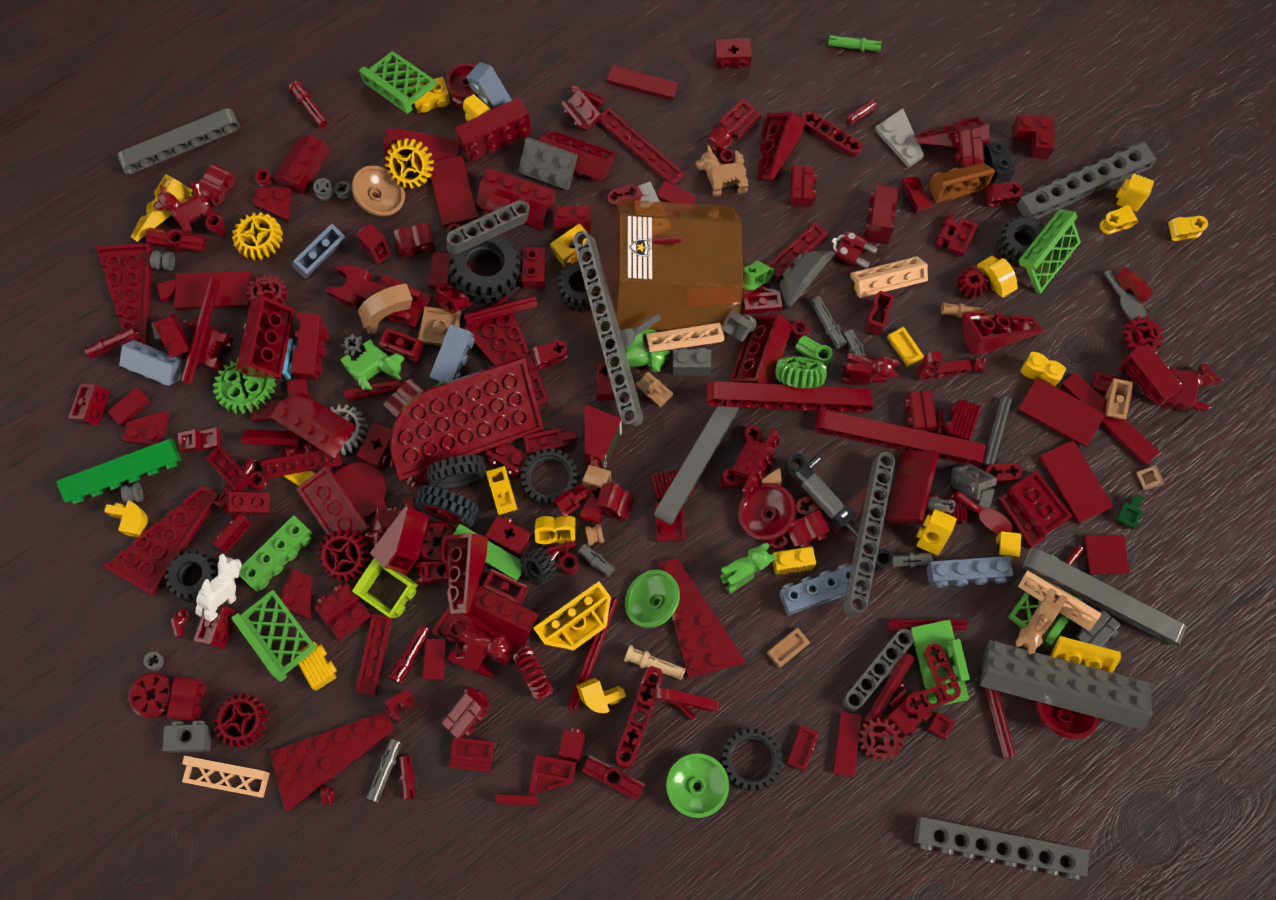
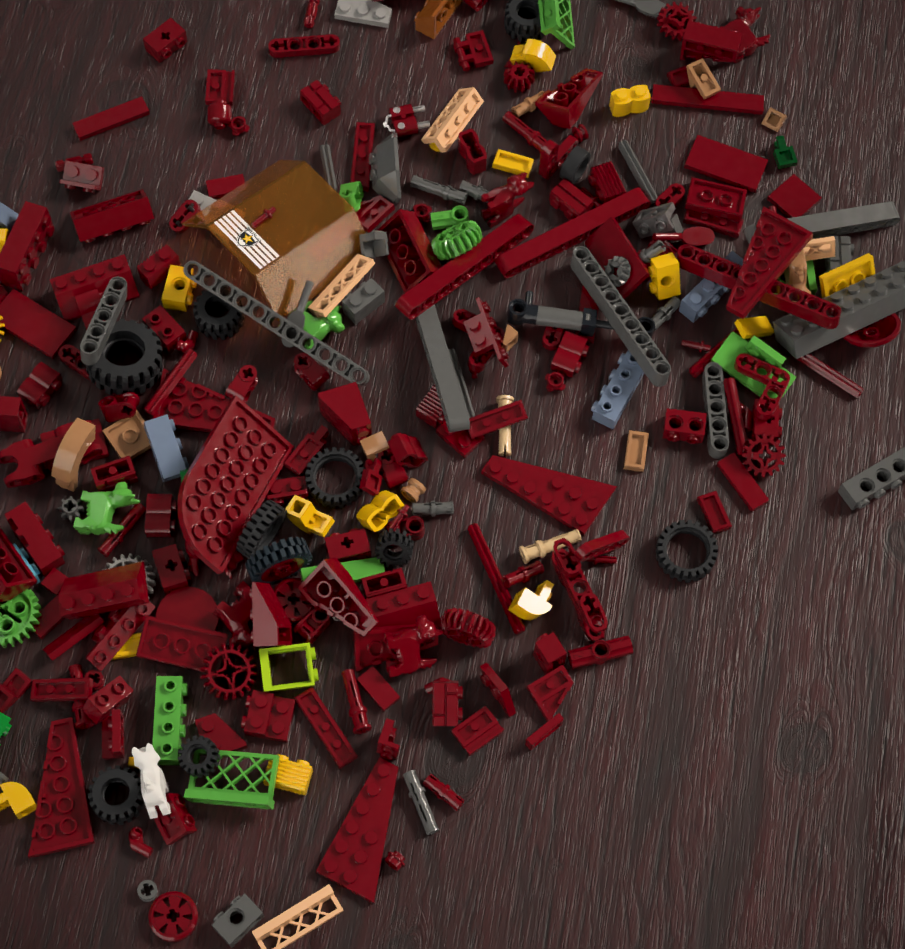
camera: 45 degrees left, 5 degrees down
(186, 699) = (206, 892): dark red brick -> none
(235, 705) = (264, 877): dark red gear -> none
(258, 591) = (193, 745): none -> black tyre
(439, 269) = (84, 393): dark red tile -> none
(511, 739) = (498, 688): none -> dark red wing
(541, 292) = (189, 343): none -> dark red arm
(547, 163) = (96, 238): dark grey plate -> none
(576, 620) = (464, 560): yellow wedge -> none
(613, 668) = (523, 574): none -> dark red pin
(640, 147) = (158, 170): dark red tile -> none
(646, 593) = (495, 492): bright green dish -> none
(654, 389) = (354, 345): medium nougat hips -> none
(701, 770) = (671, 589): bright green dish -> none
(702, 533) = (497, 419): none -> dark red tile
(704, 483) = (461, 381): none -> dark grey axle
(713, 536) = (504, 433): none -> tan pin
(723, 174) = (250, 139): medium nougat animal -> none
(743, 569) = (554, 415): bright green animal -> none
(761, 242) = (328, 166): none -> dark grey axle
(767, 500) = (522, 353): dark red dish -> none
(780, 135) = (268, 80): dark red wedge -> none
(794, 560) = (581, 384): yellow brick -> none
(846, 657) = (684, 421): none -> dark red brick
(881, 214) = (404, 77): dark red wedge -> none
(903, 501) = (623, 270): none -> dark grey gear
(915, 609) = (696, 345): none -> dark red piece
(916, 194) = (413, 43): dark red slope -> none
(939, 339) = (533, 137): none -> dark red pin
(940, 725) = (794, 413): dark red tile -> none
(949, 386) = (575, 164): none -> black tyre
(971, 631) = (753, 326): none -> yellow tile
(997, 612) = (693, 258): none -> dark red beam
(1009, 544) = (722, 243): yellow panel -> none
(1029, 586) = (768, 255): none -> dark red wing
(1061, 412) = (670, 121): dark red tile -> none

